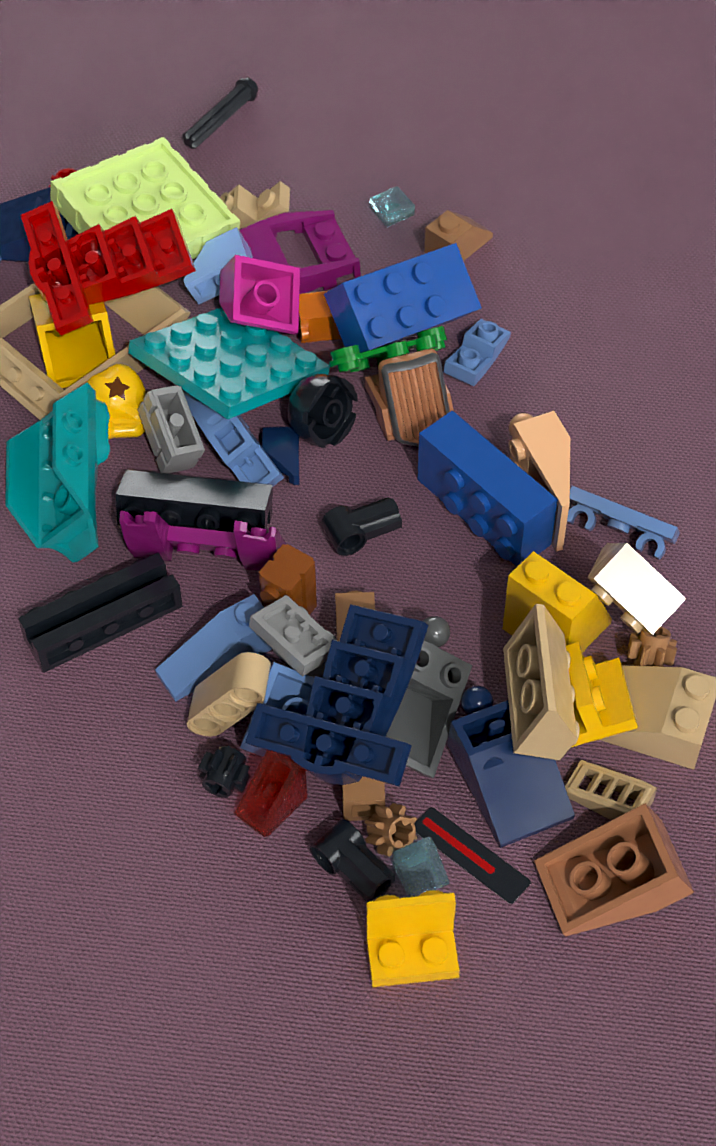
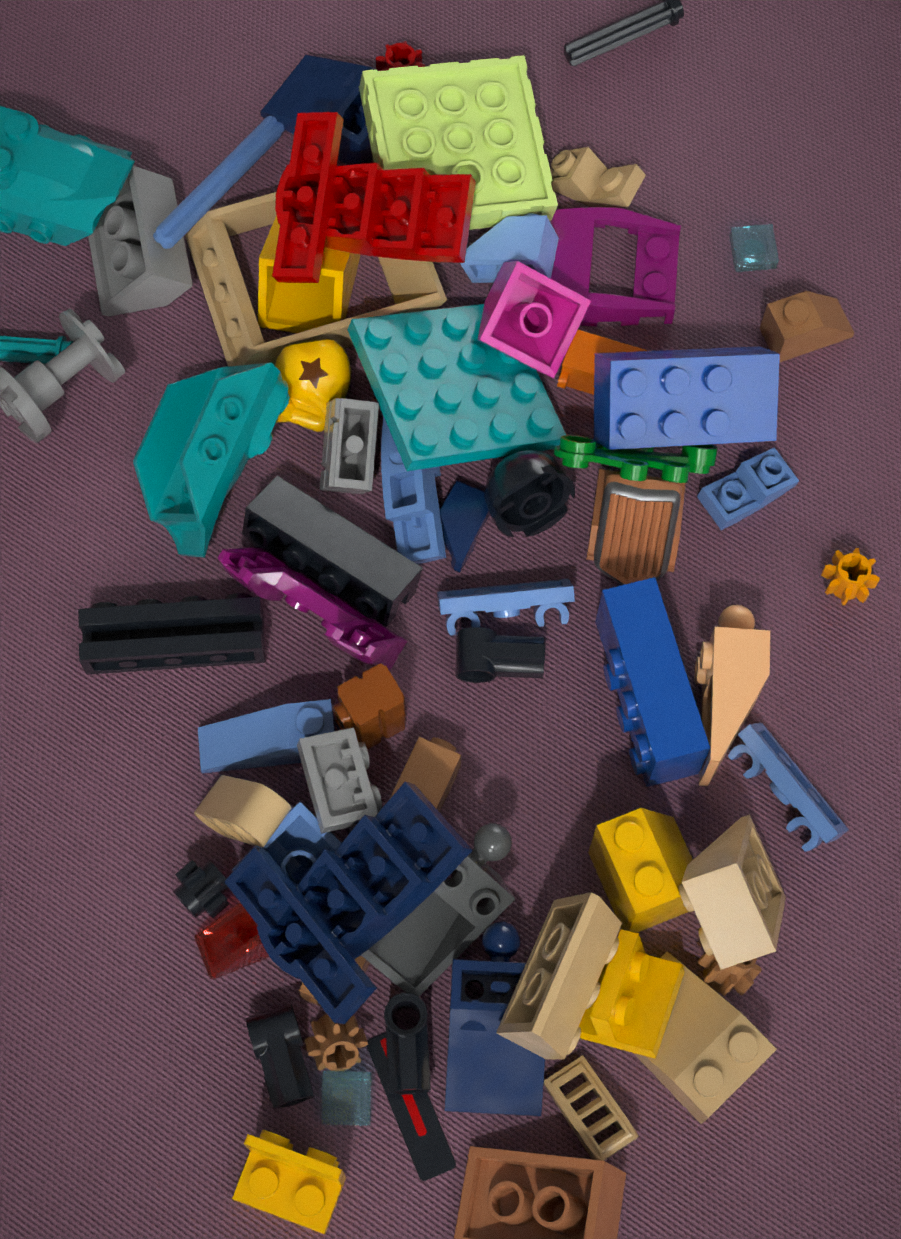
camera: 25 degrees right, 15 degrees up
(346, 488) = (506, 601): none -> medium blue plate
(447, 809) = (407, 1049): none -> black piece
(583, 374) = (861, 580): none -> light orange gear

